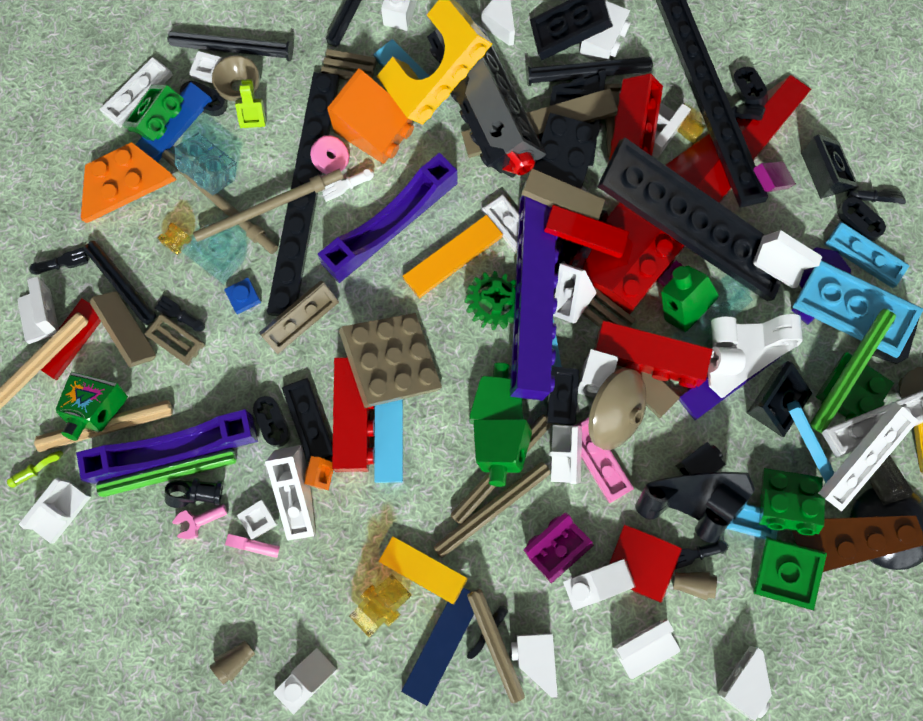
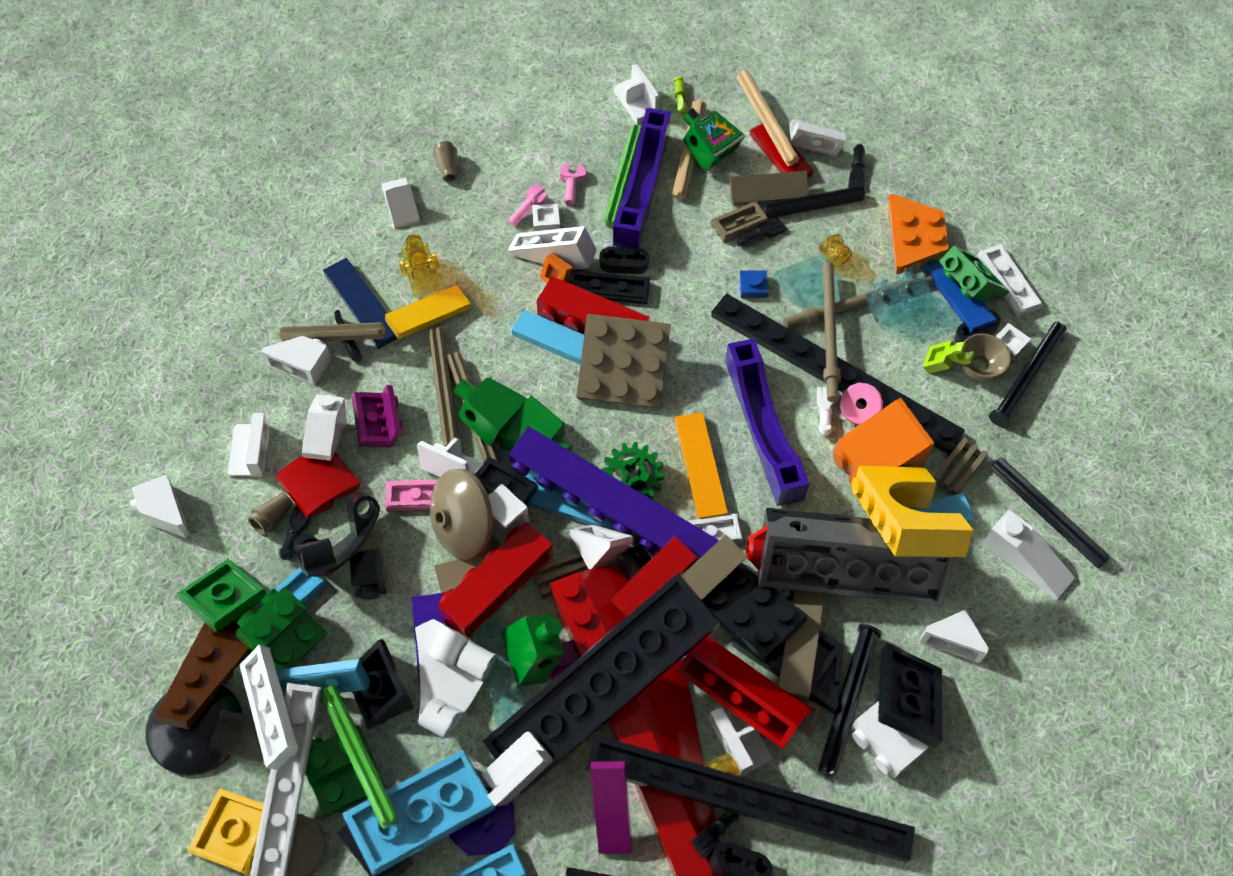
camera: 115 degrees right, 15 degrees down
(194, 492) = (594, 185): black connector -> none
(299, 317) = (707, 314): dark tan tile -> none

